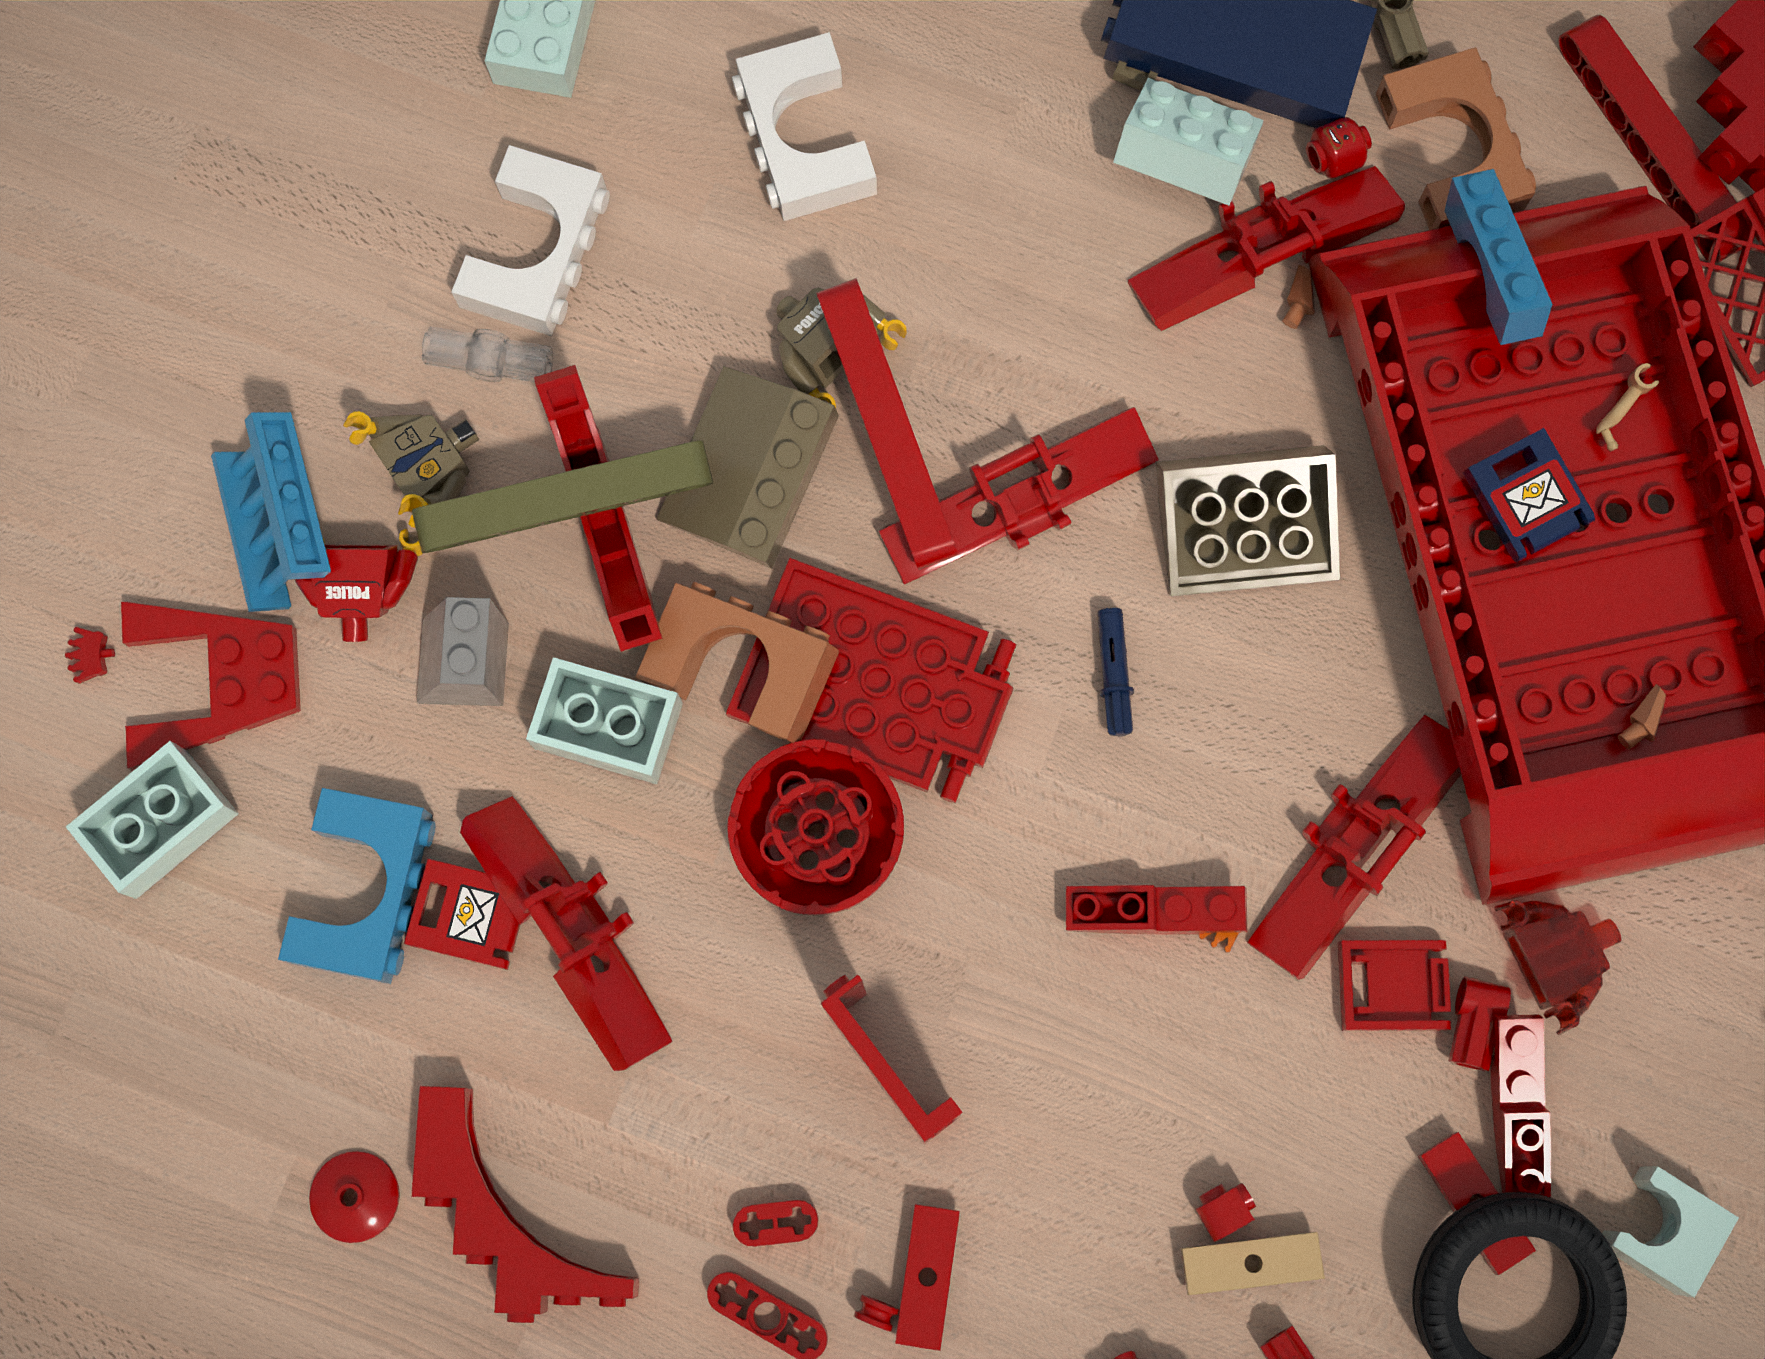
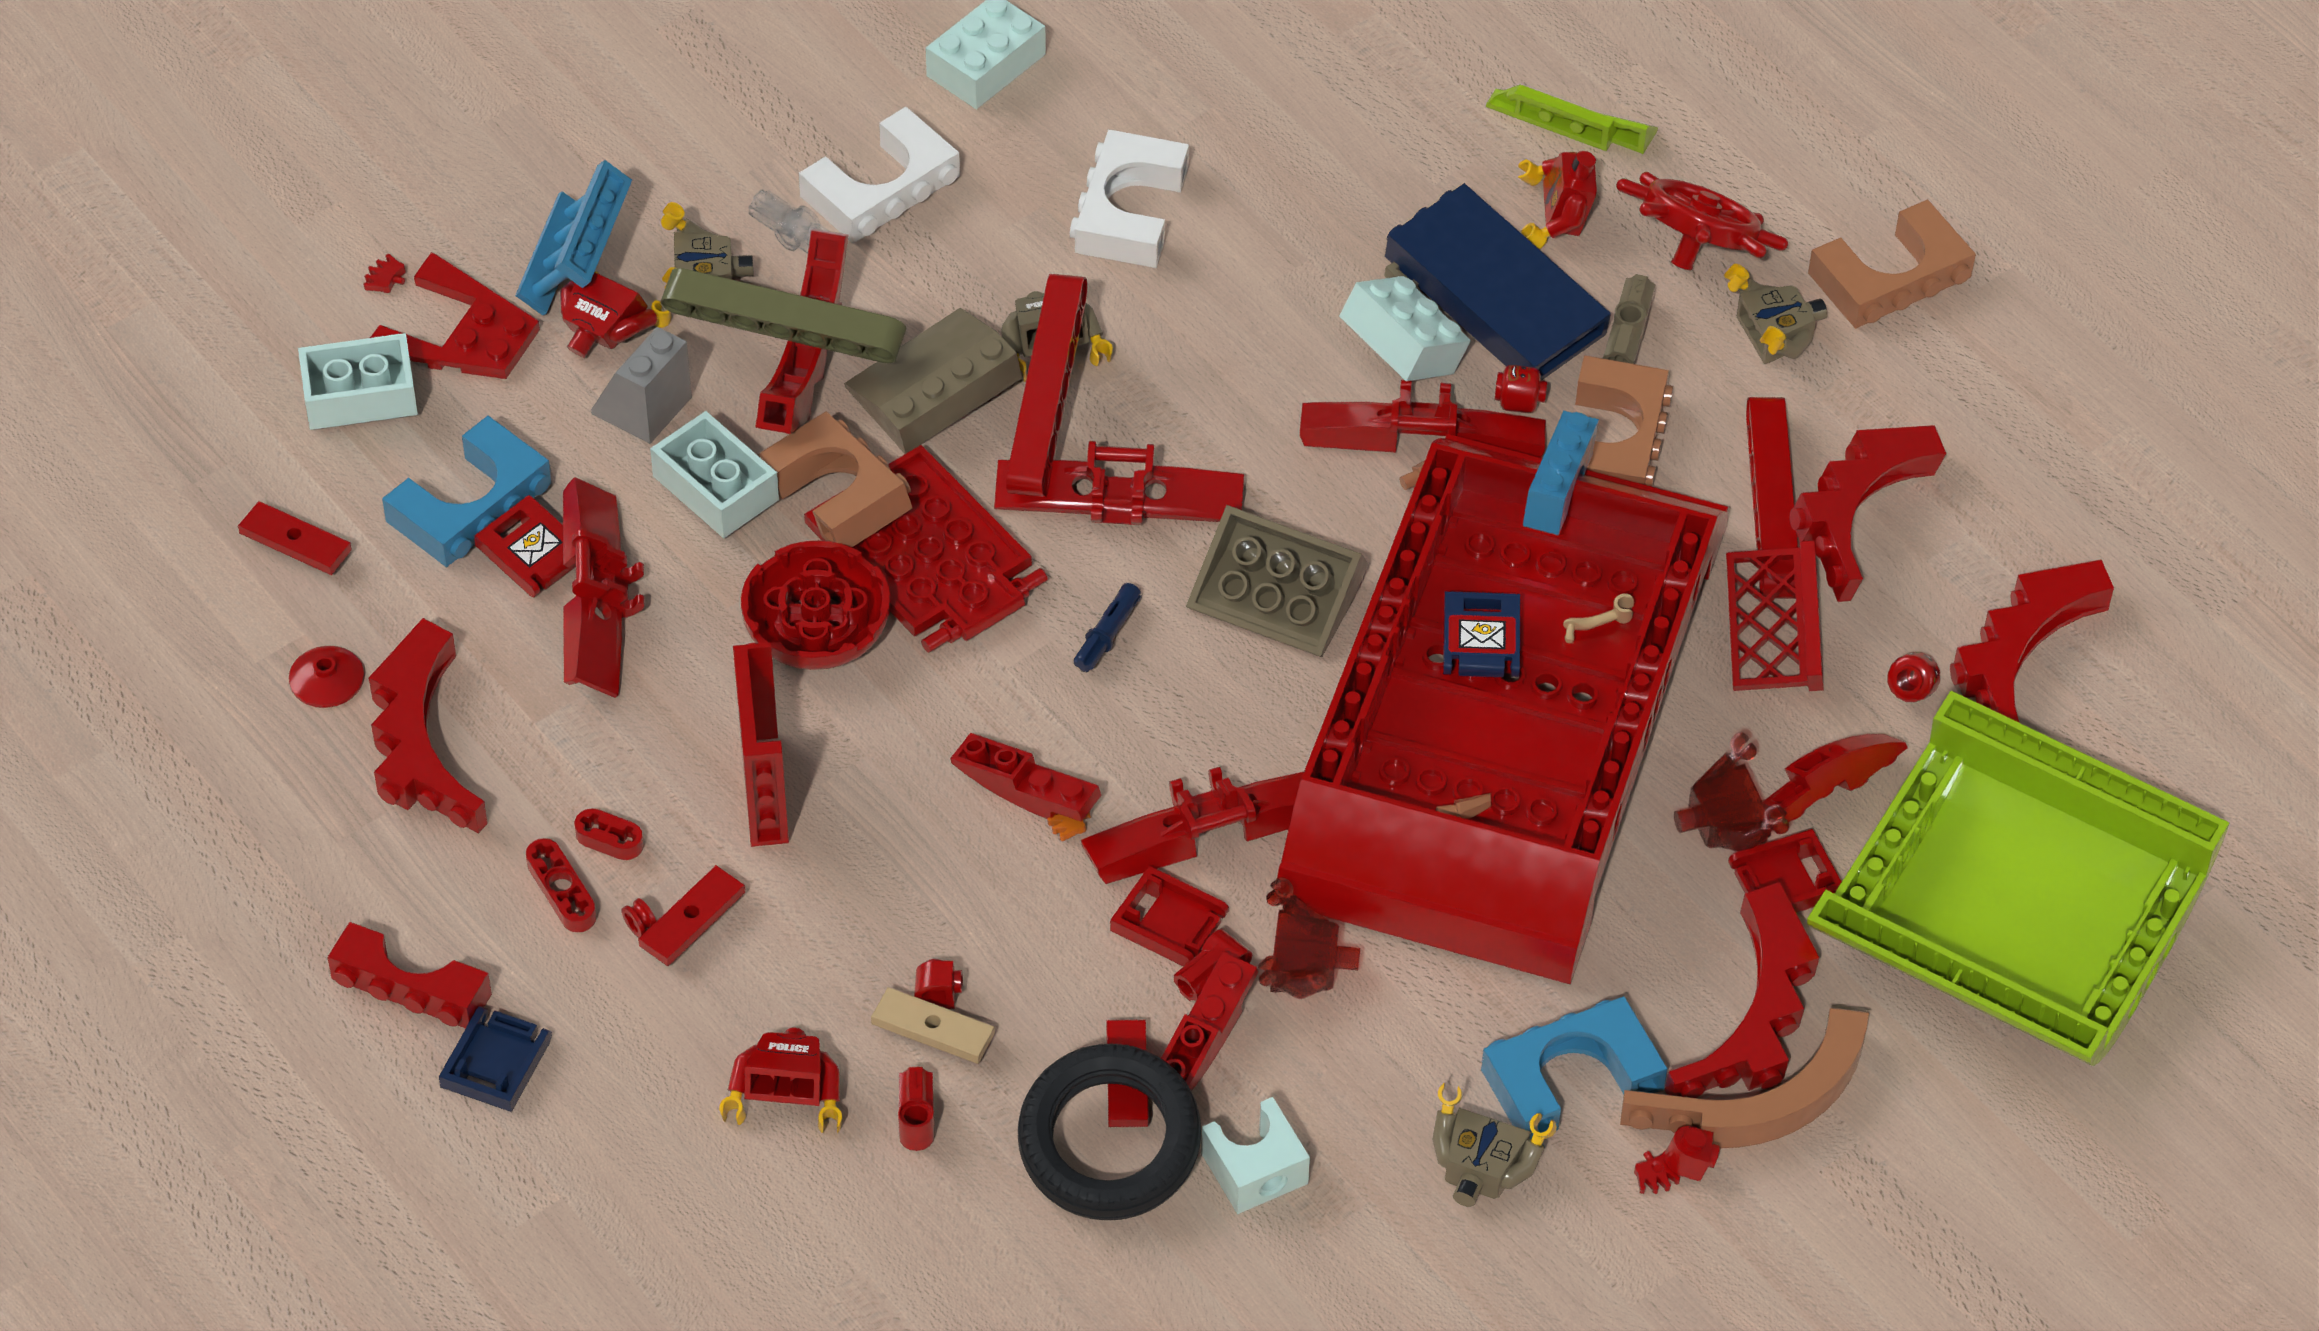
camera: 25 degrees right, 25 degrees down
(187, 1050) = (294, 538): none -> red tile

